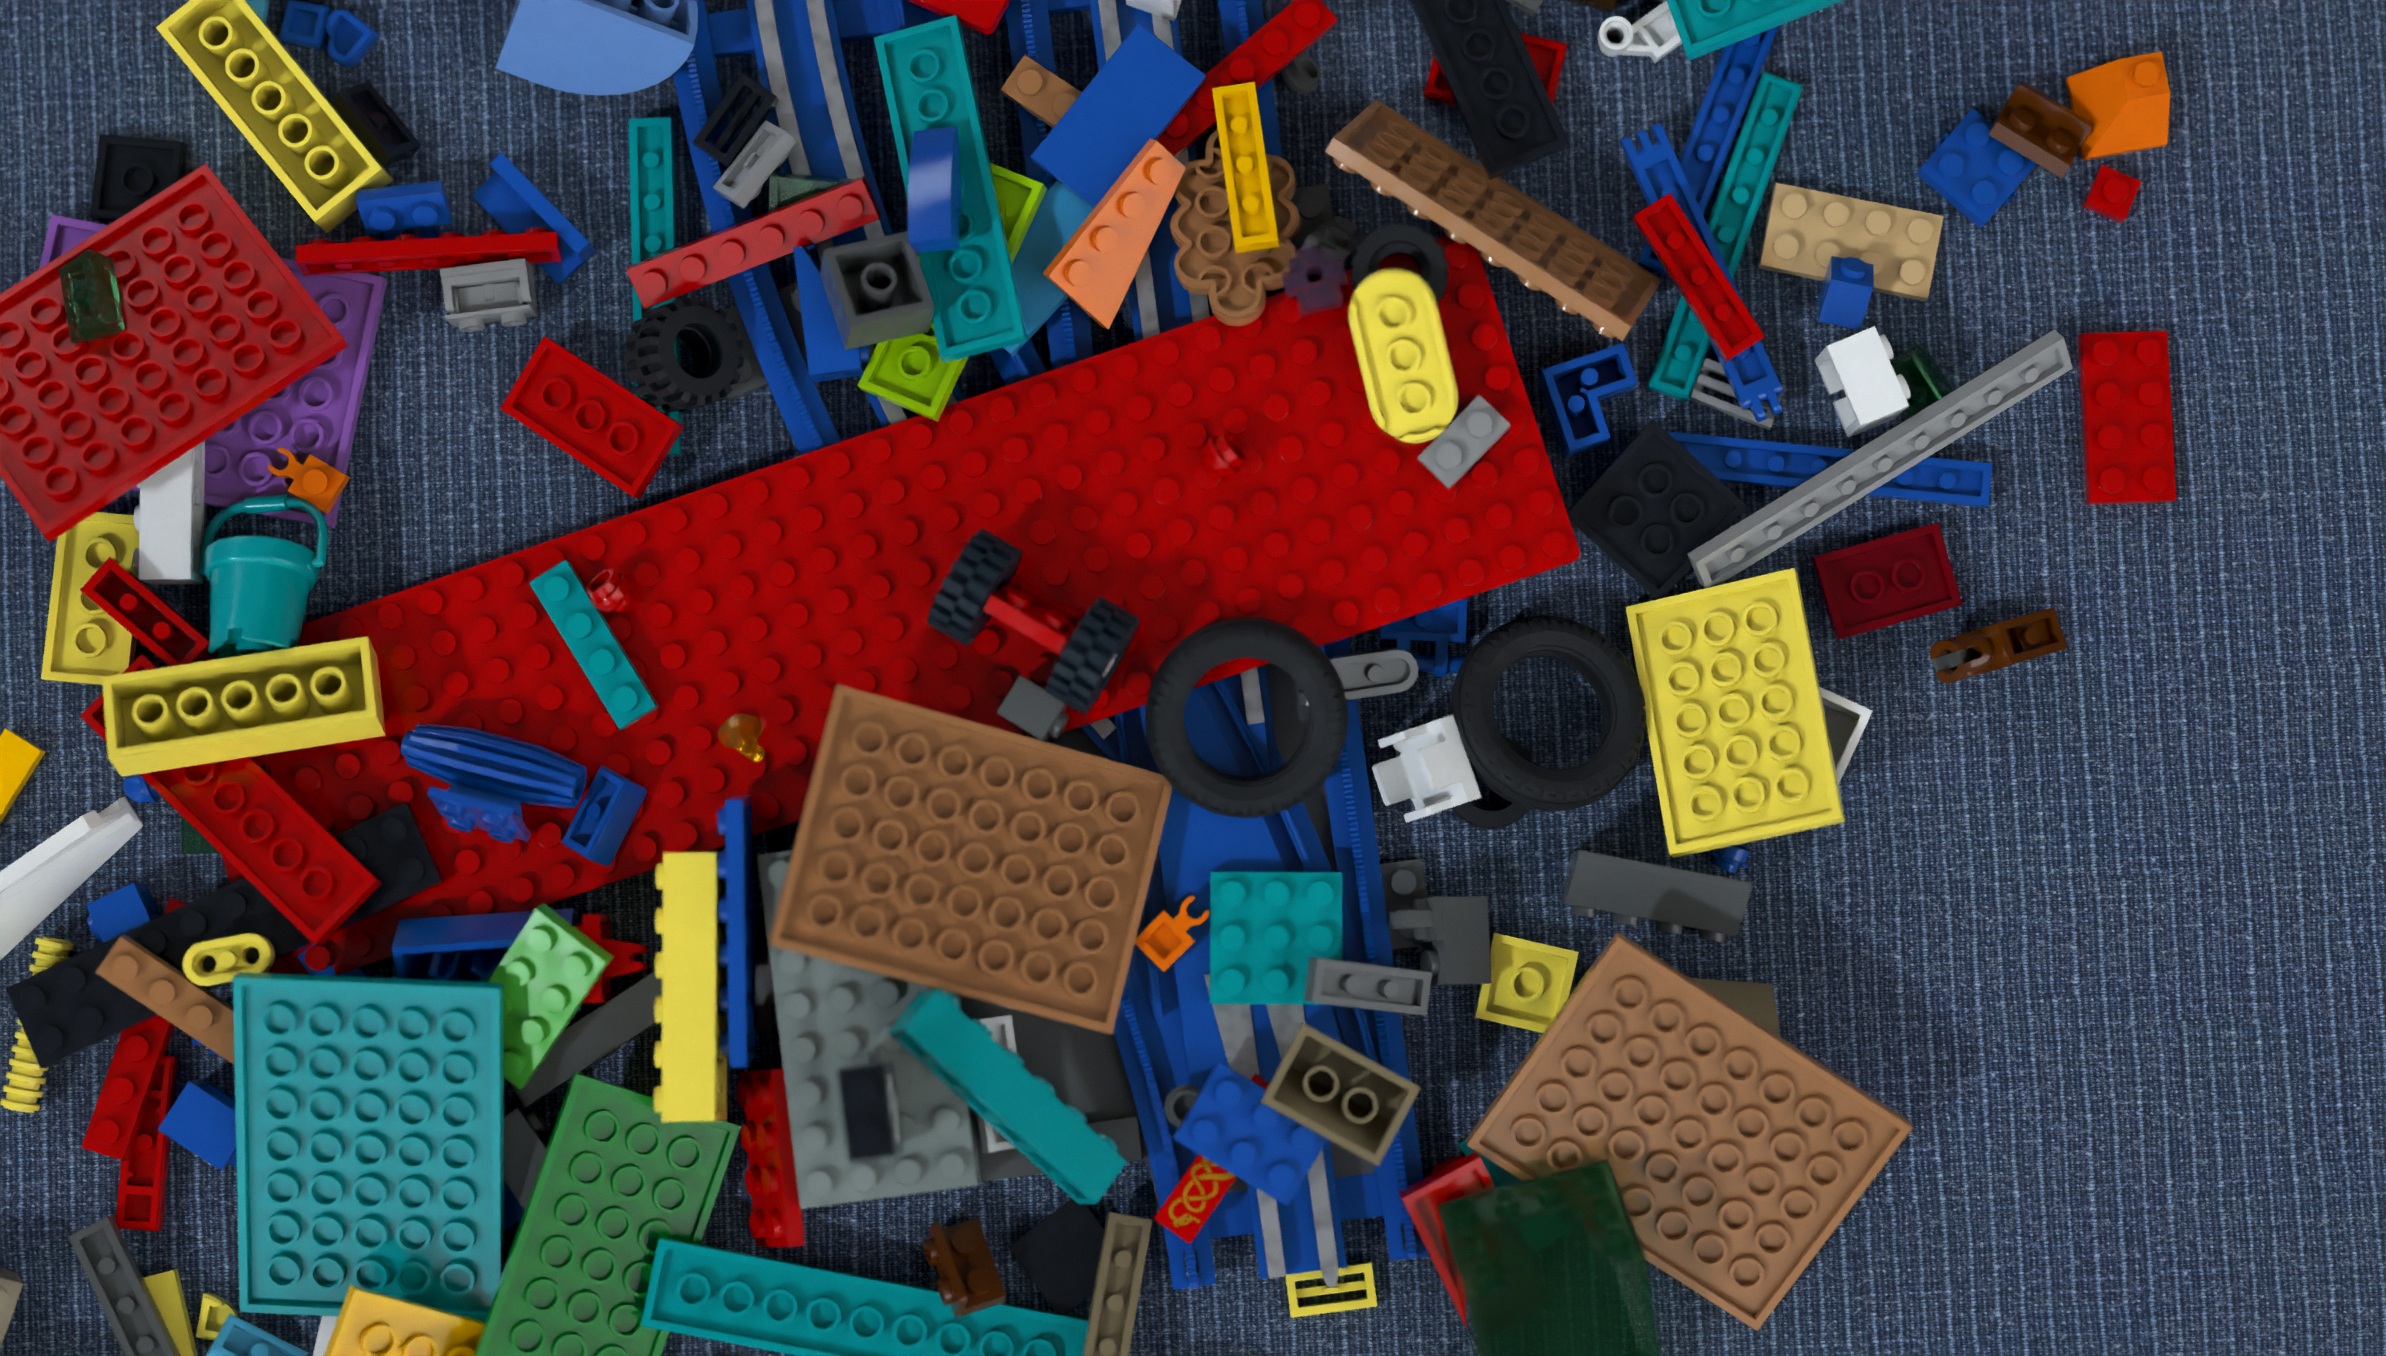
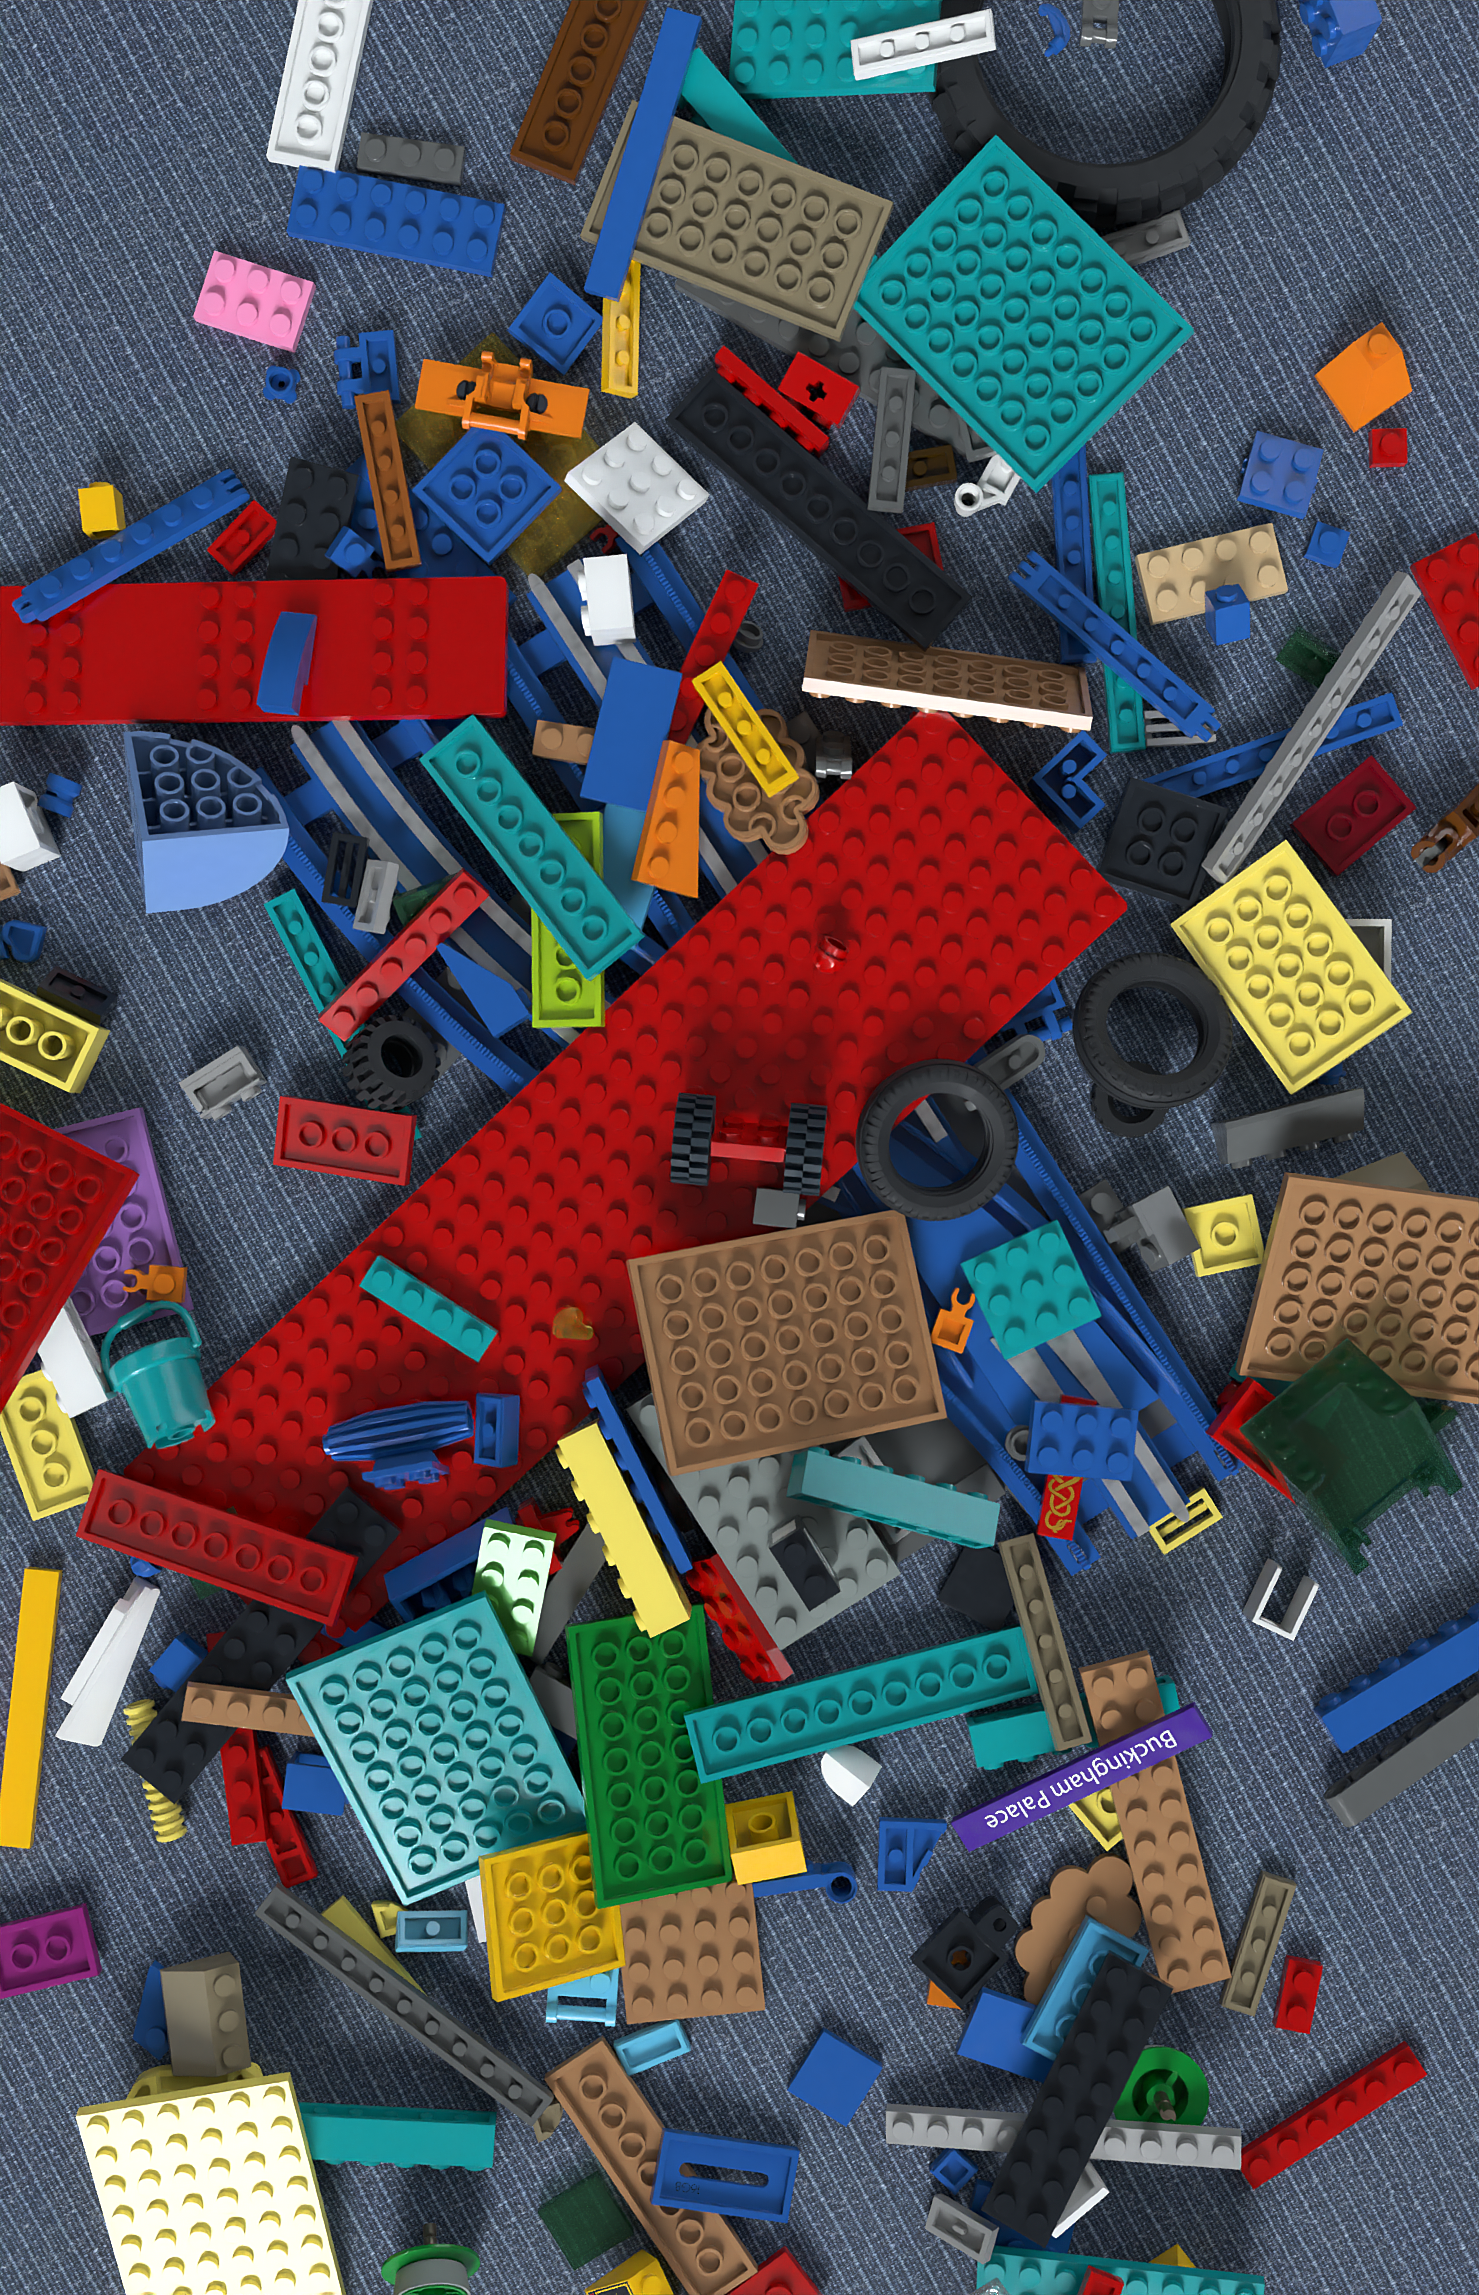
camera: 30 degrees left, 5 degrees up
(146, 615) = (90, 1442): red brick -> none
(229, 957) = (275, 1664): light yellow plate -> none
(243, 706) = (193, 1476): light yellow brick -> none
(405, 208) = (132, 1048): blue plate -> none
(414, 253) = (152, 1080): red plate -> none
(521, 206) = (229, 1013): blue panel -> none
(610, 591) = (422, 1264): red plate -> none
(876, 290) = (515, 951): dark grey brick -> none
(934, 190) = (522, 855): blue slope -> none
(965, 1267) = (913, 1630): reddish brown bracket -> none
(1314, 296) = (841, 805): clear purple brick -> none
(1340, 1094) = (1133, 1382): dark tan slope -> none
(1367, 986) = (1115, 1294): dark grey plate -> none
(1402, 240) = (879, 737): black tyre -> none
(1403, 355) = (931, 817): light yellow tile -> none
(1427, 769) = (1083, 1111): white panel -> none
(1464, 442) = (1004, 861): light grey plate -> none
(1671, 1306) = (1438, 1415): none -> clear green slope
(1698, 277) = (1116, 654): red plate -> none
(1866, 375) = (1275, 671): white piece -> none
(1994, 269) = (1326, 544): none -> blue plate
(2040, 129) = (1315, 423): reddish brown bracket -> none

